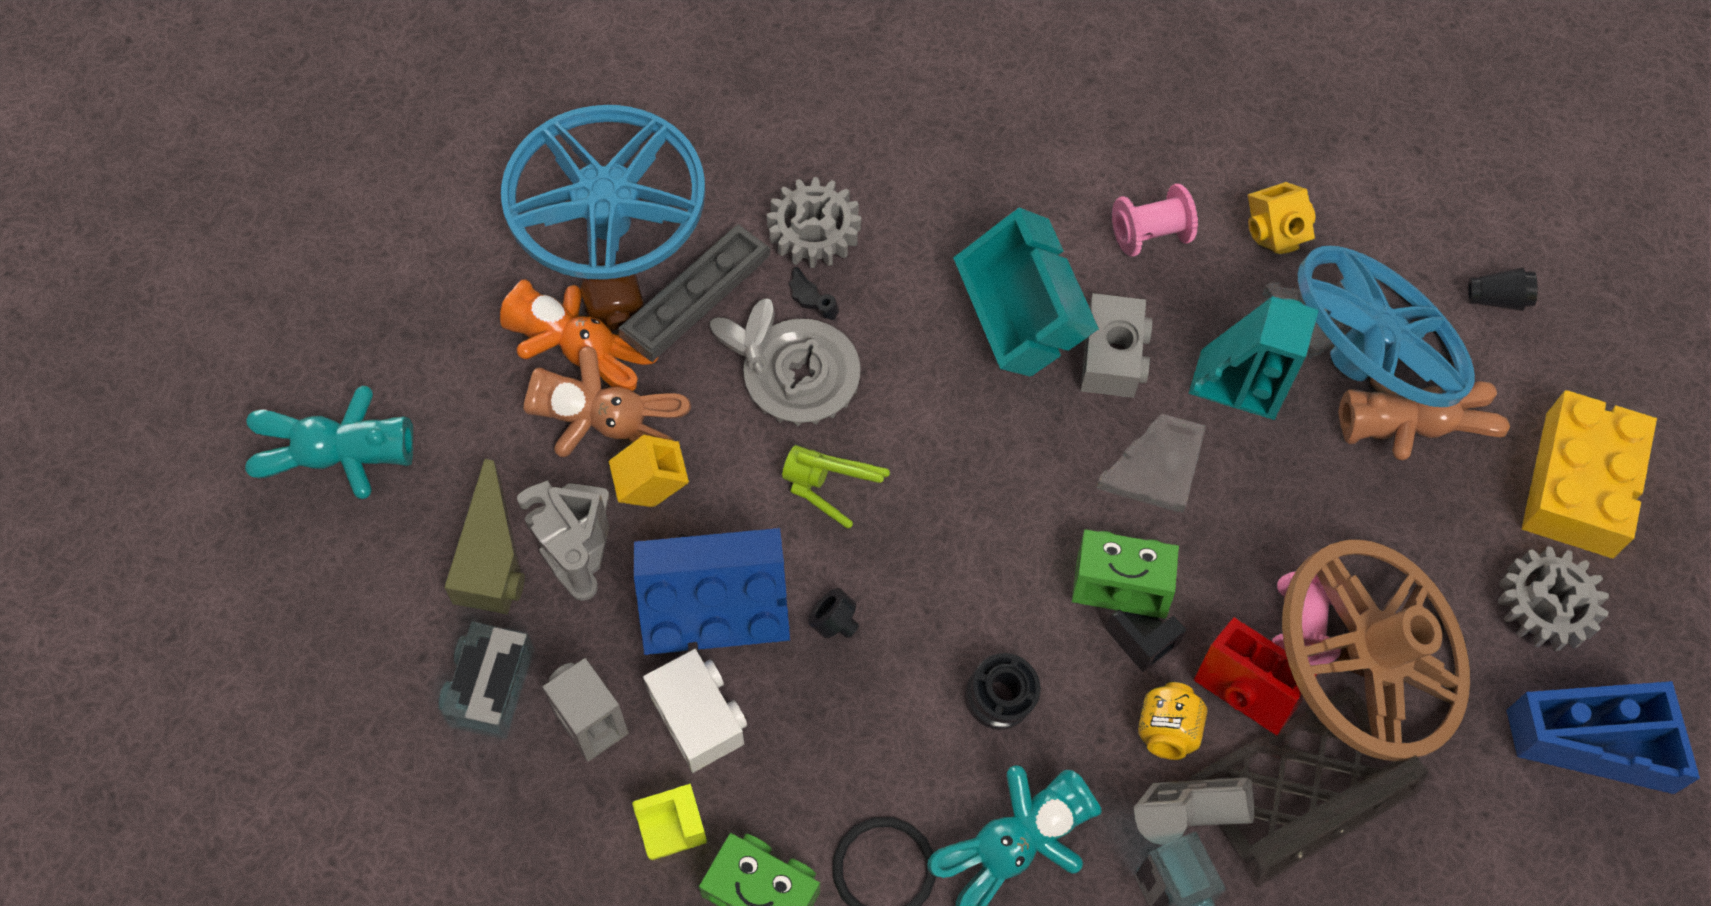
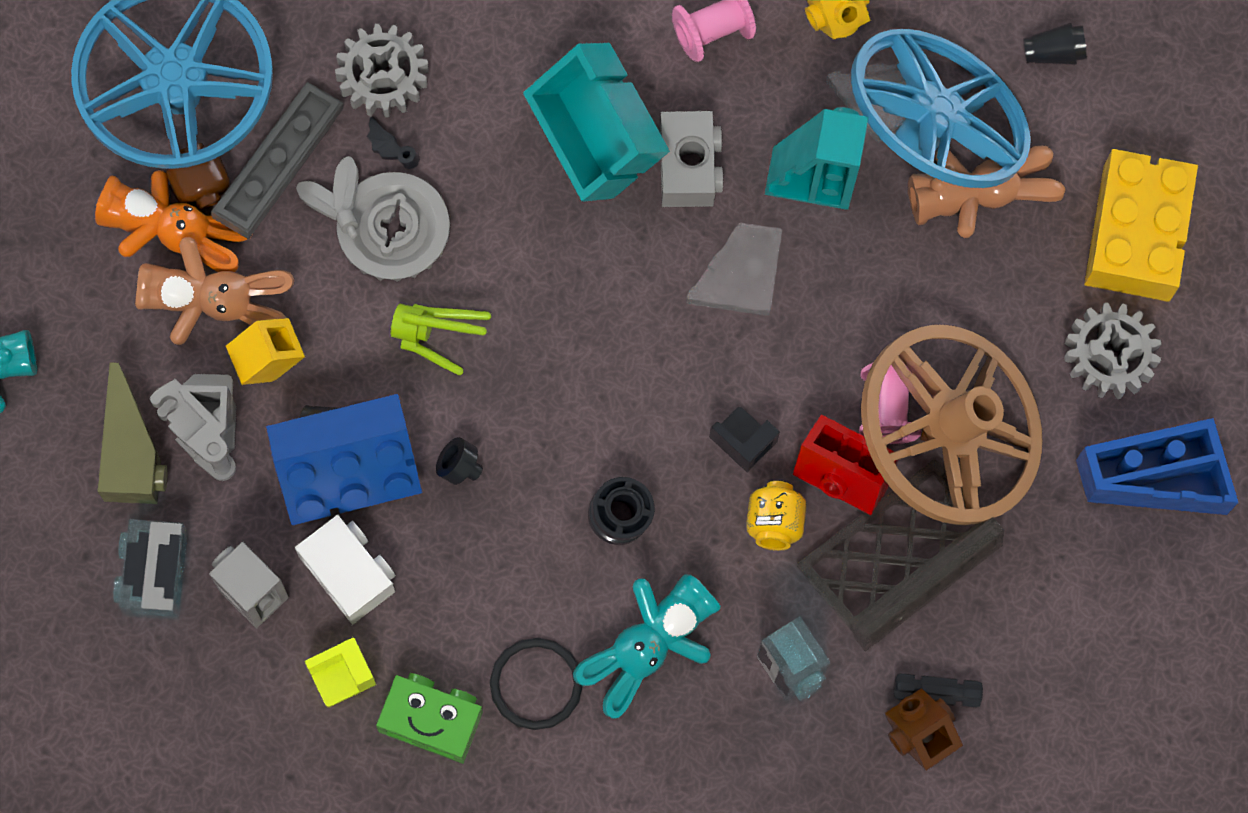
camera: 10 degrees left, 10 degrees up
(1125, 573) = (720, 384): bright green brick -> none
(1173, 806) = (787, 590): light grey brick -> none

